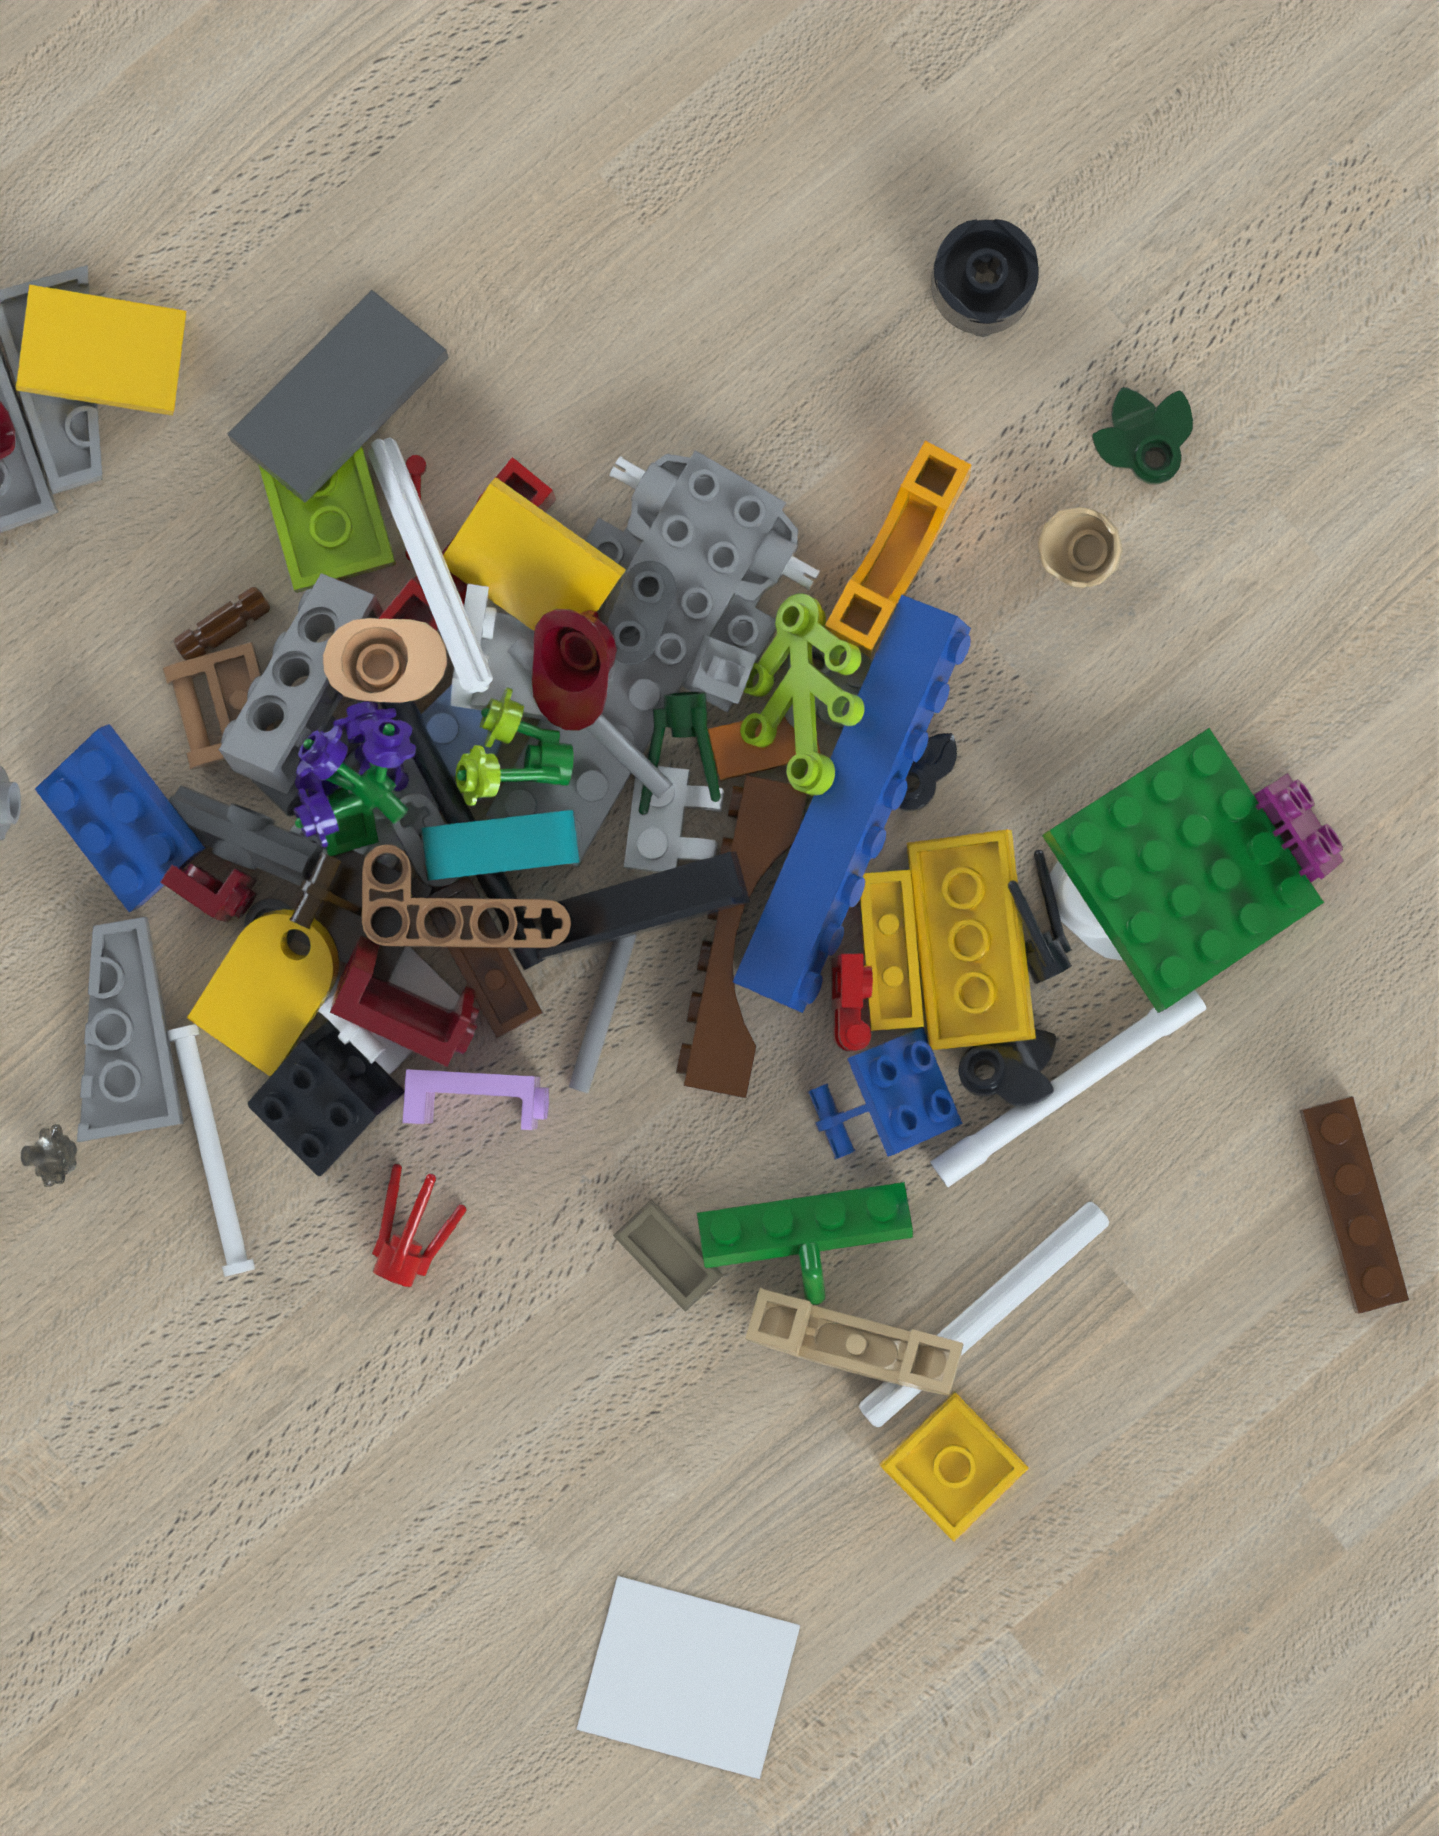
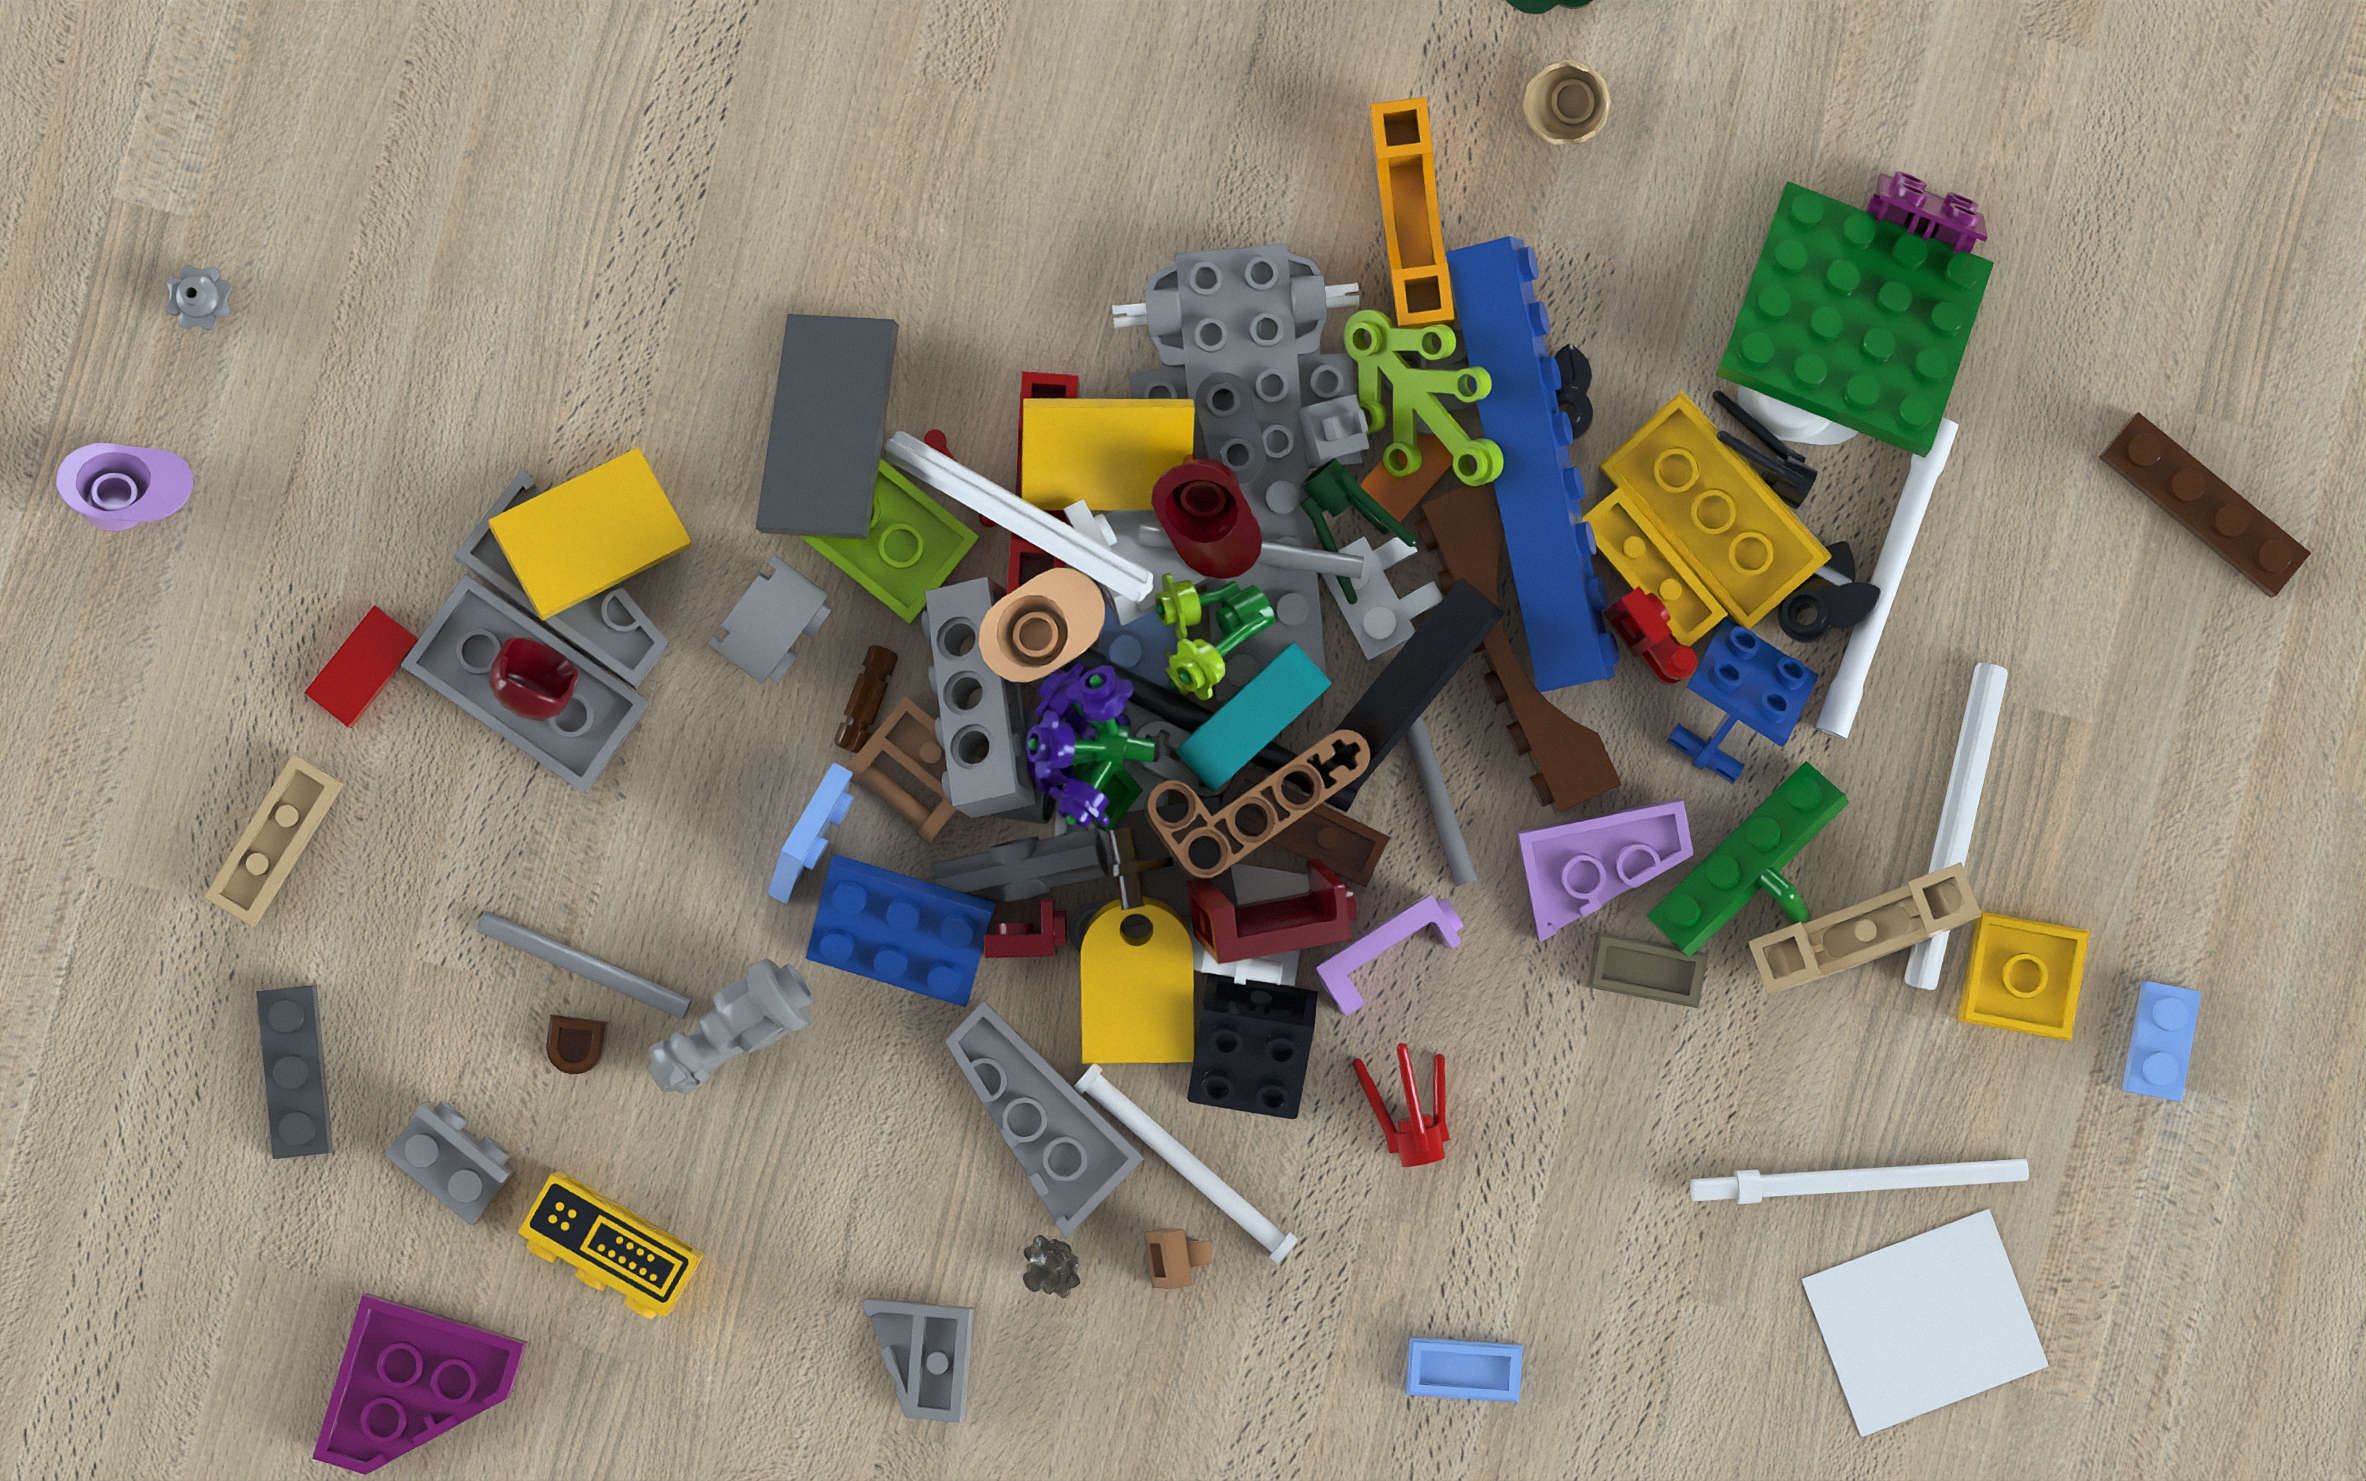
camera: 45 degrees left, 0 degrees up
(98, 697) = (807, 839): none -> light blue wing
(149, 1214) = (1172, 1257): none -> medium nougat tile
(188, 512) = (770, 621): none -> light grey brick
(310, 1459) = (1464, 1369): none -> light blue tile
(627, 1477) = (1750, 1186): none -> white bar
(691, 1142) = (1594, 858): none -> lavender wing
(1024, 1592) = (2161, 1041): none -> light blue plate

